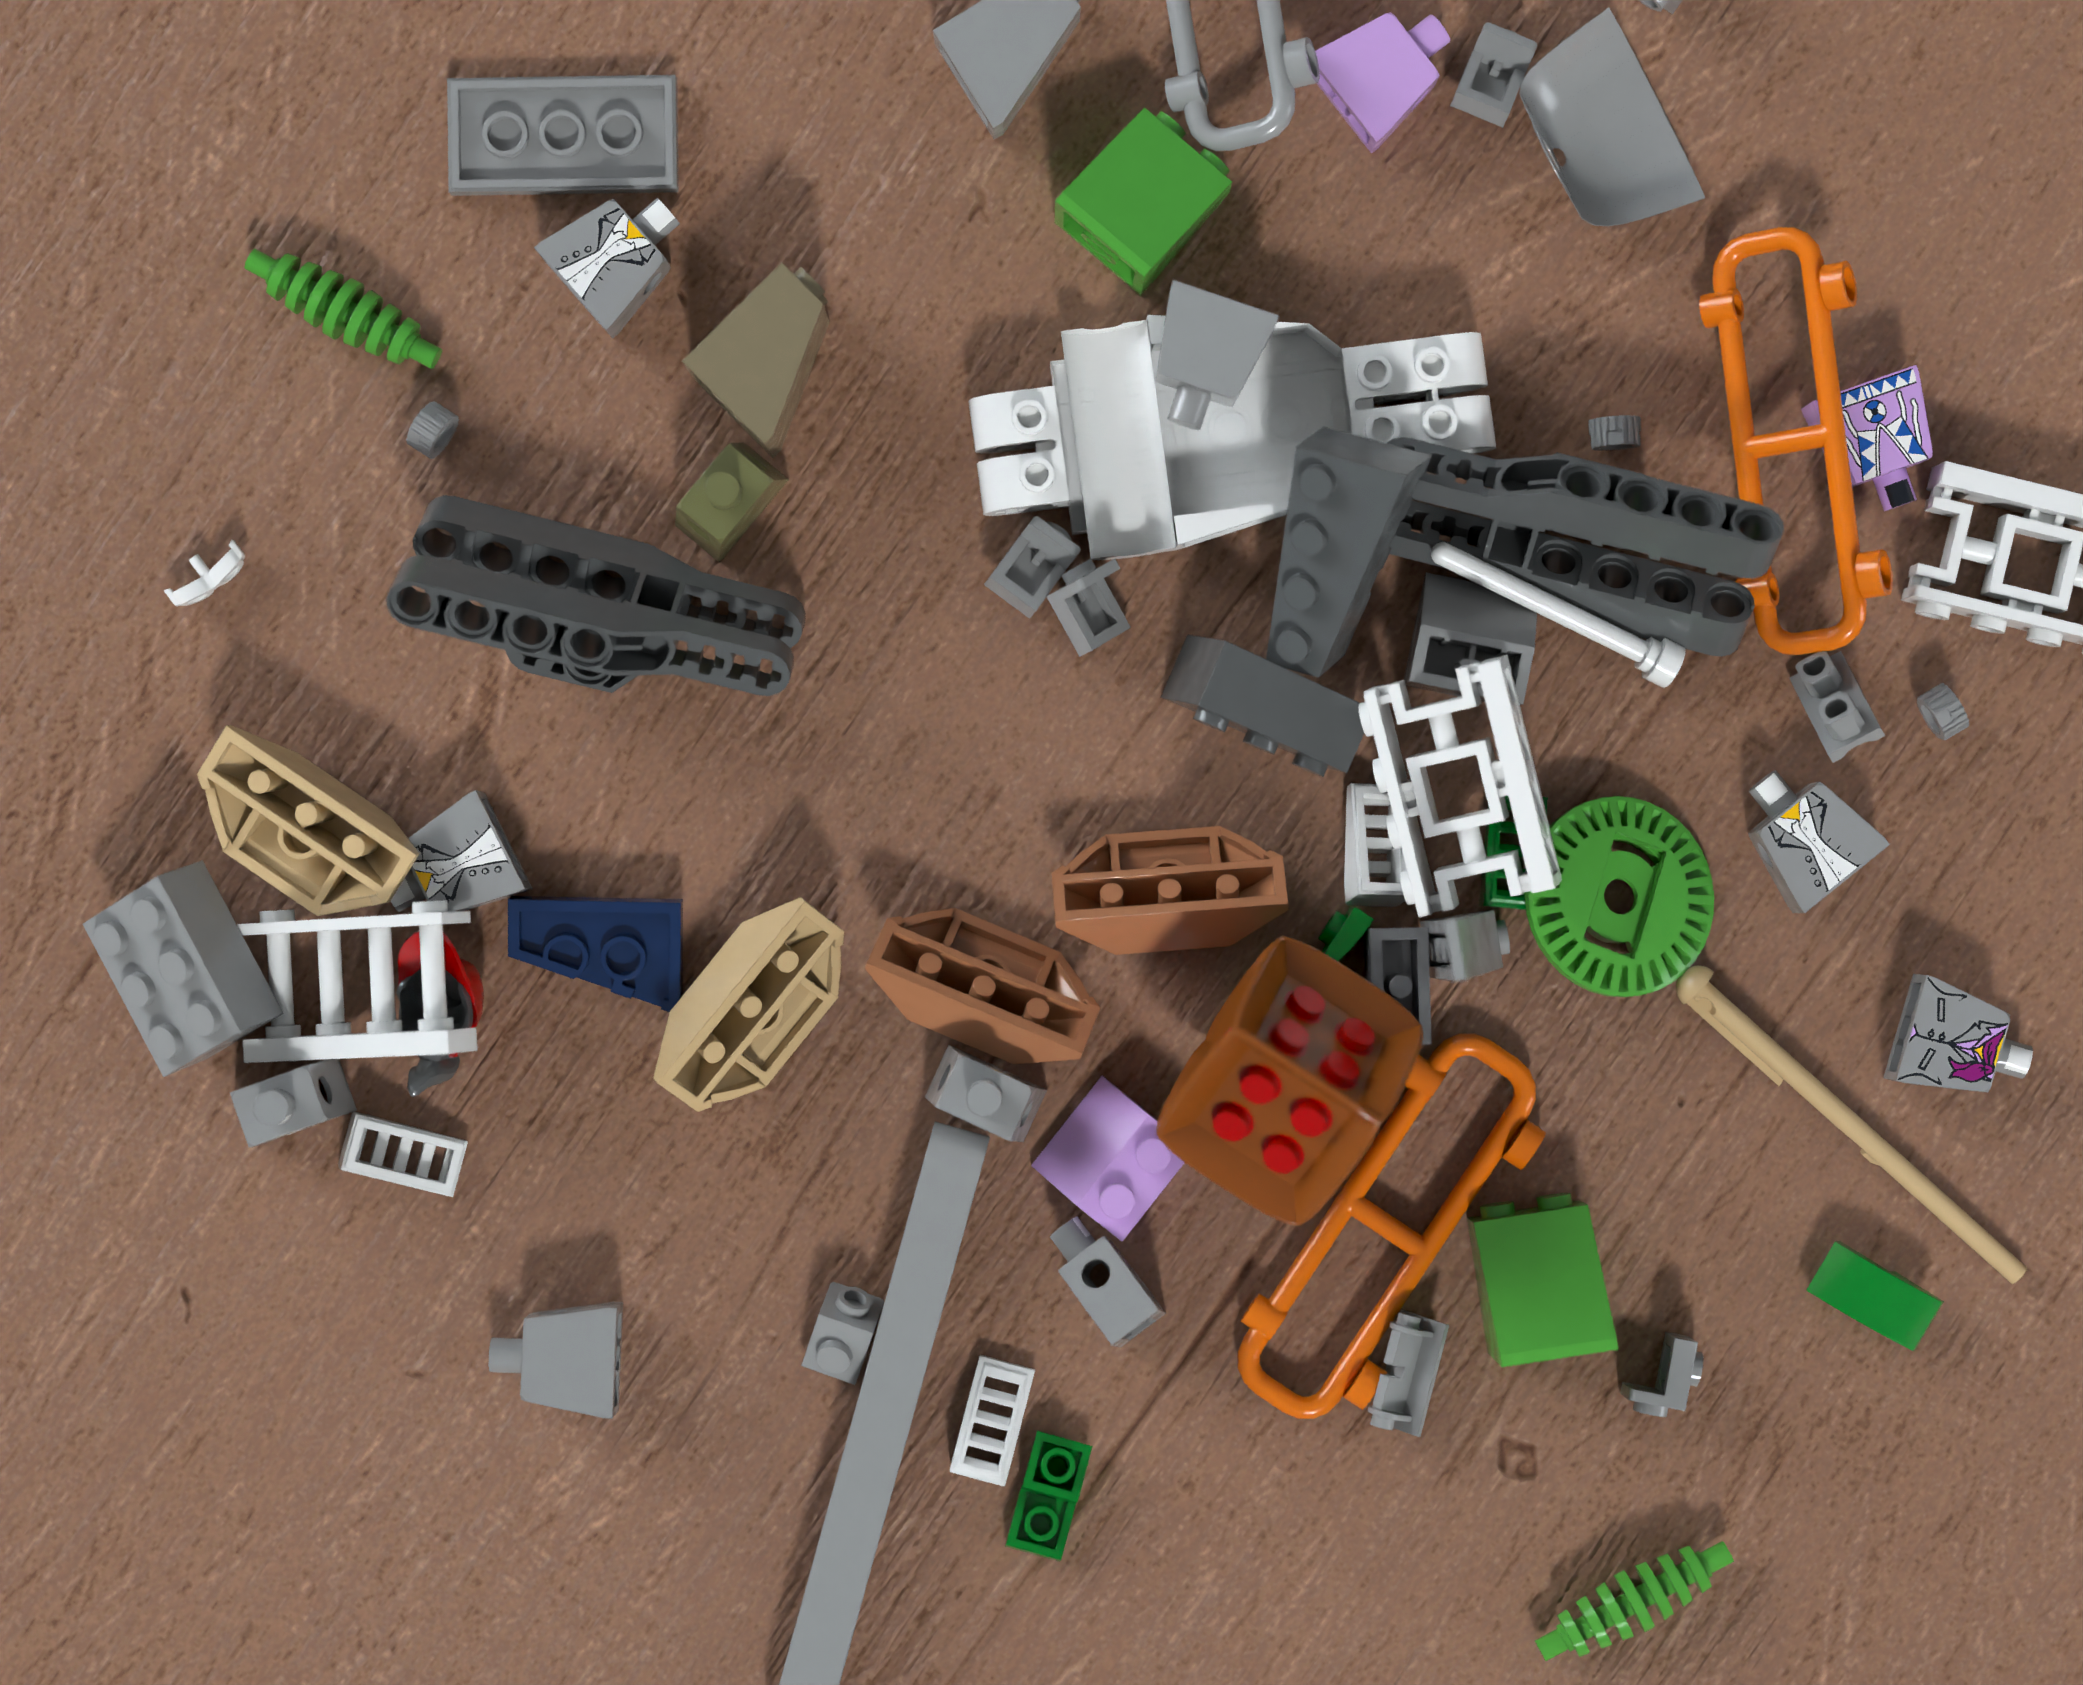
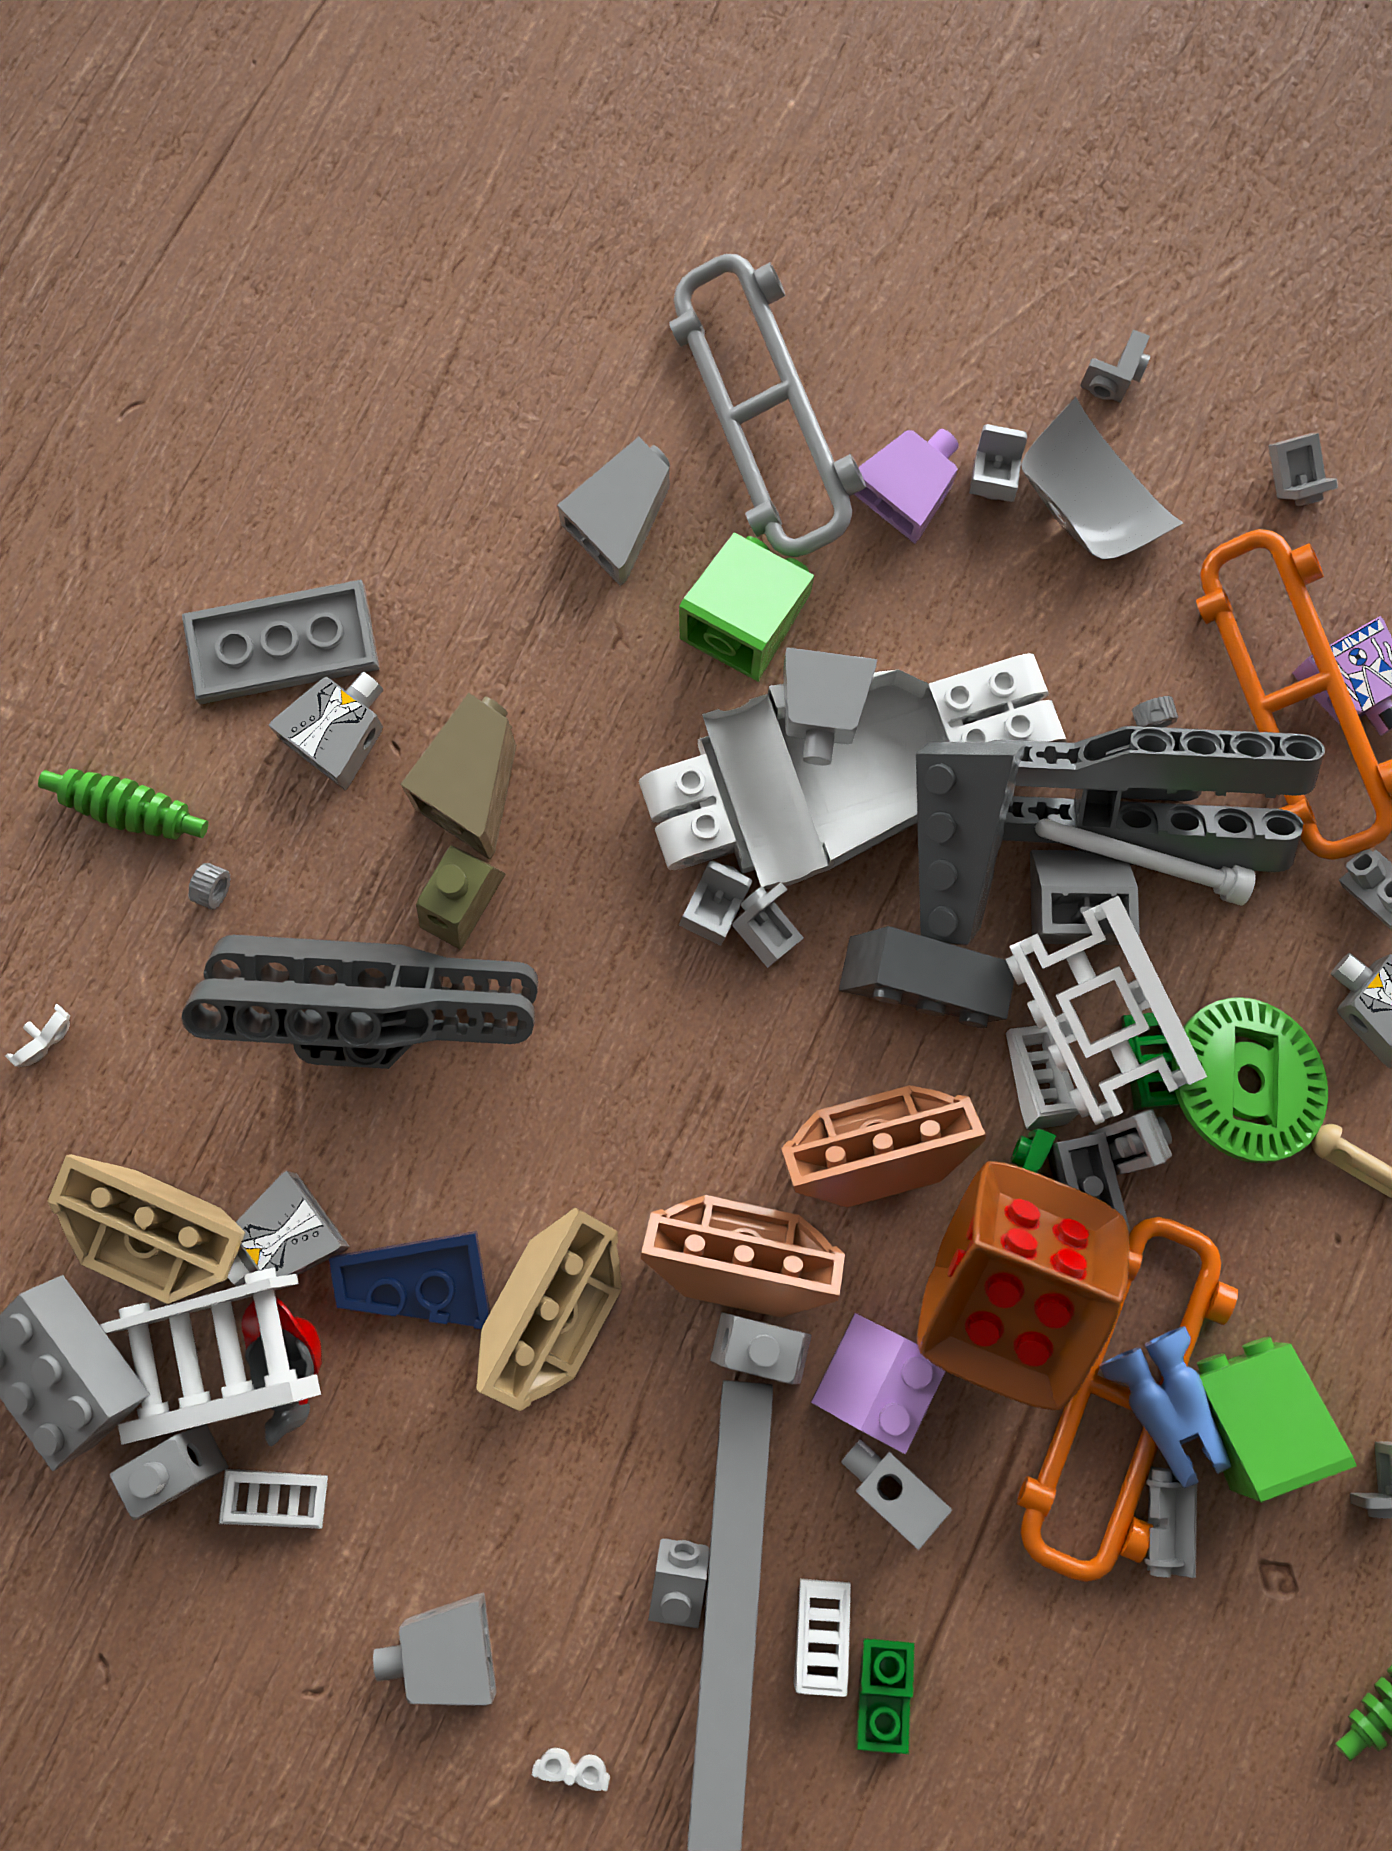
camera: 10 degrees left, 10 degrees down
(672, 1499) = (557, 1766): none -> white piece
(1435, 1252) = (1173, 1410): none -> medium blue piece
(1872, 153) = (1300, 469): none -> light grey bracket

